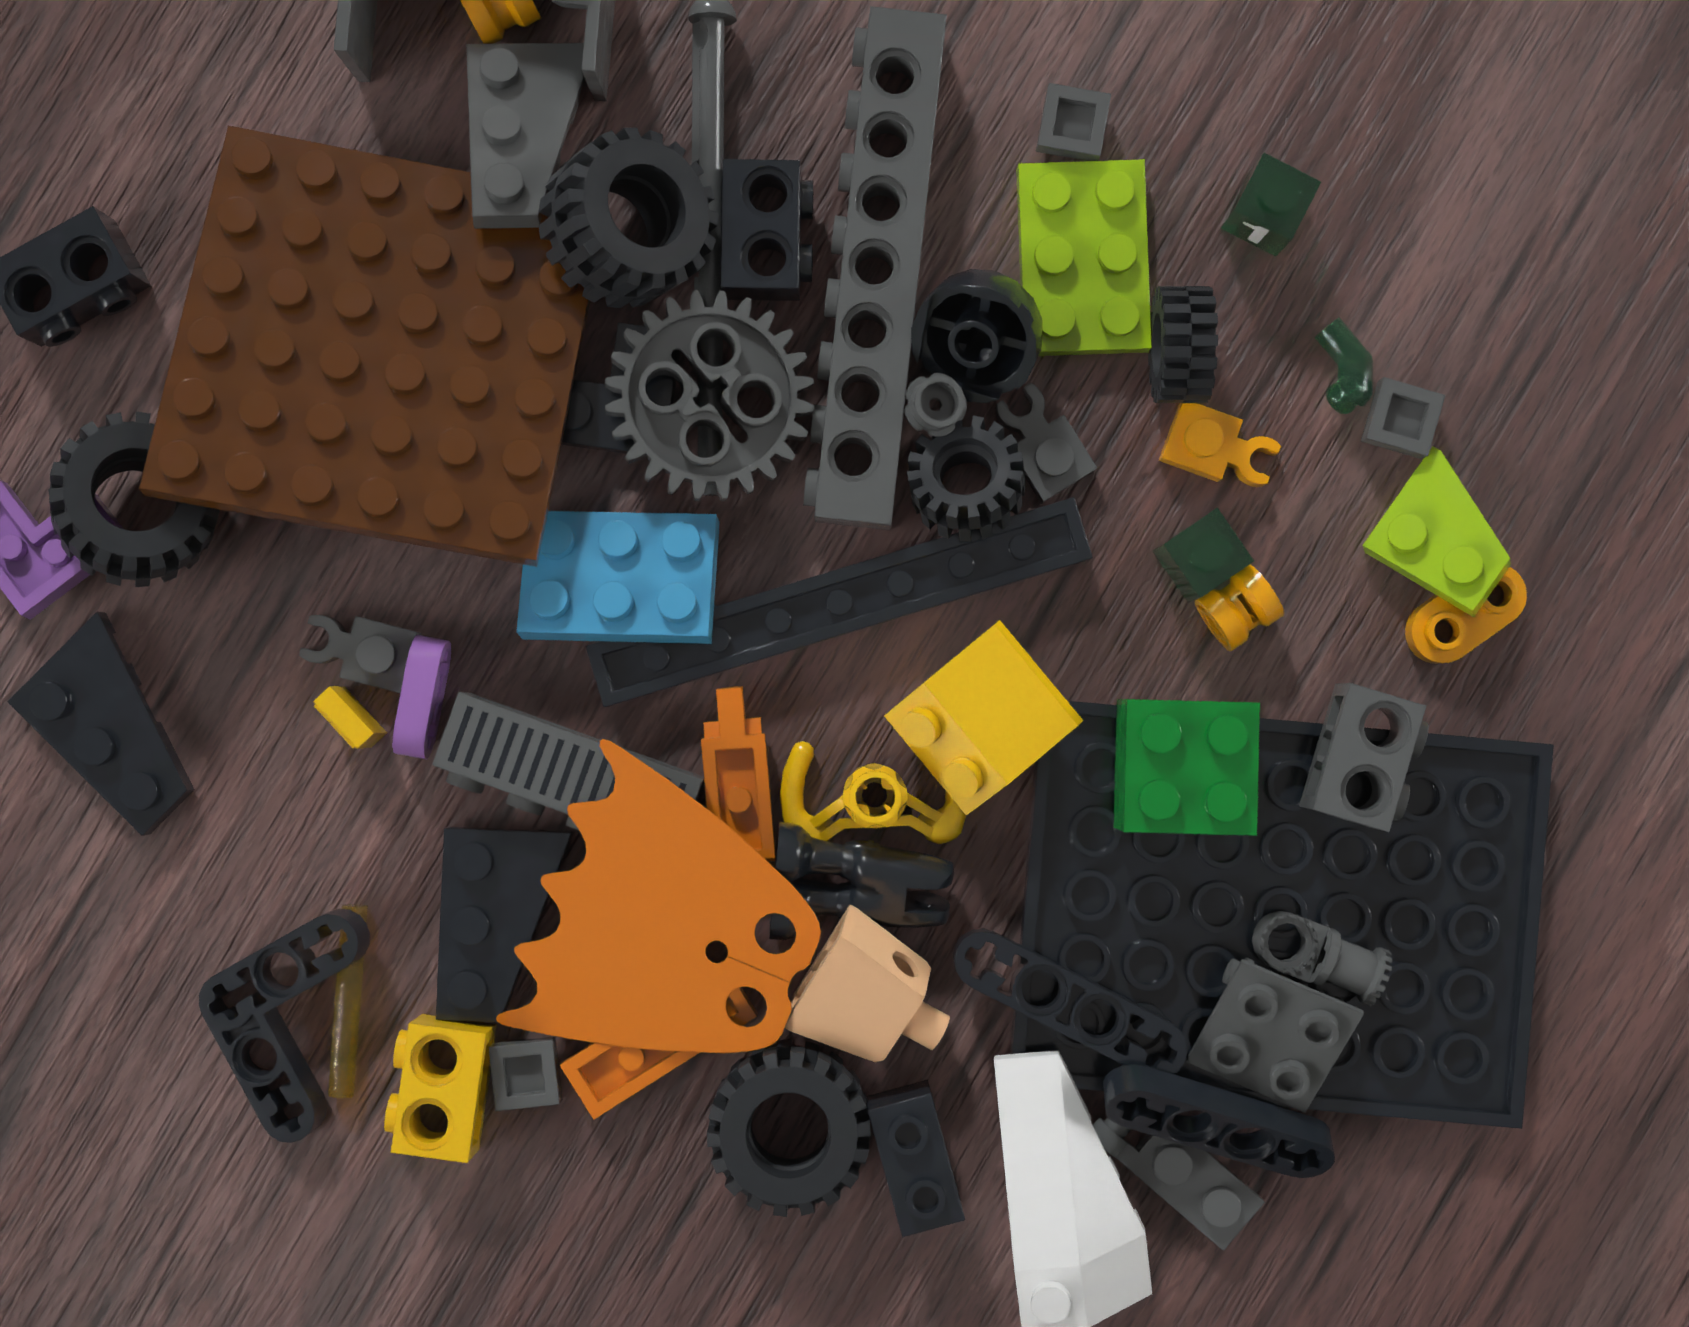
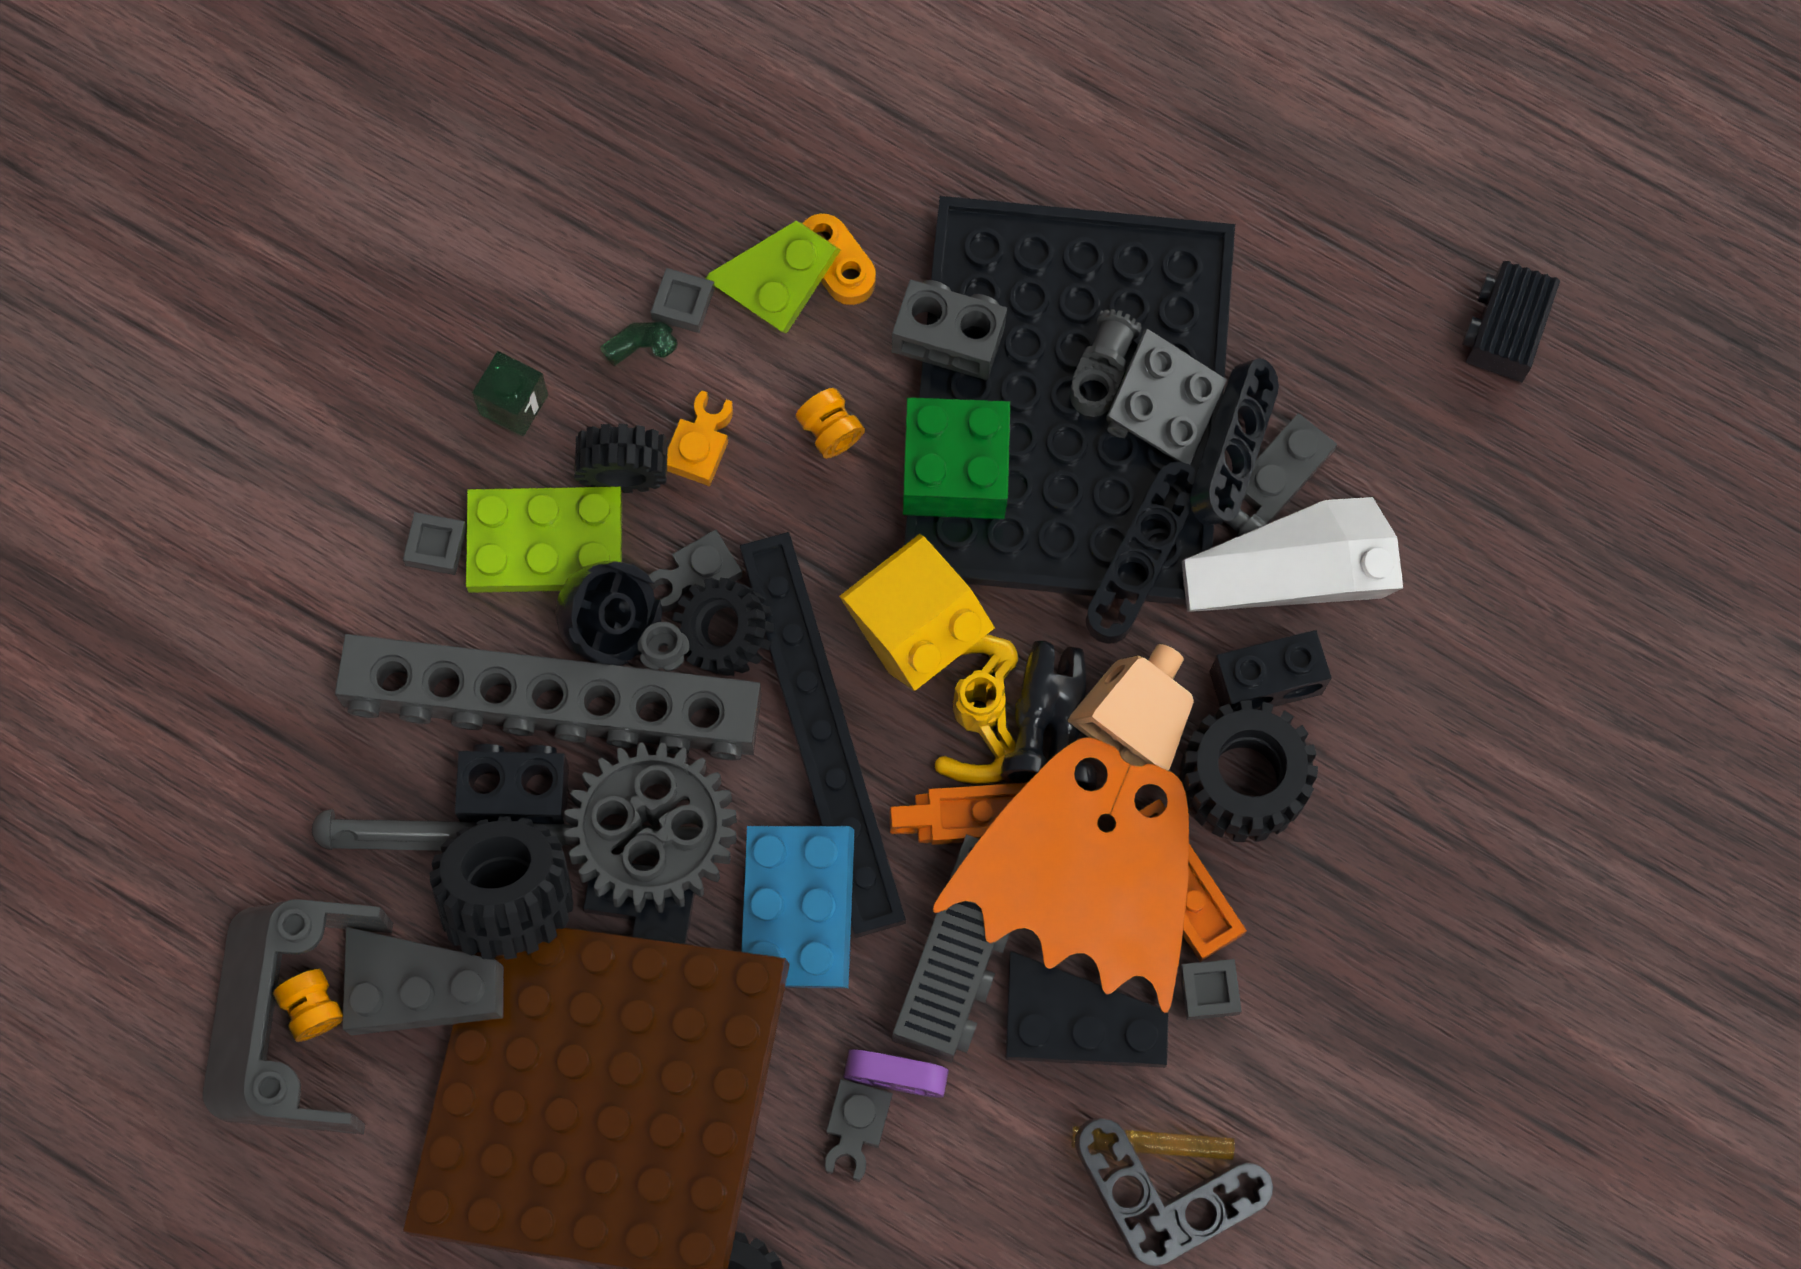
camera: 95 degrees left, 15 degrees down
(349, 717) = (913, 1134): yellow tile -> none
(456, 1091) = (1223, 1042): yellow brick -> none
(1203, 555) = (788, 448): clear green brick -> none

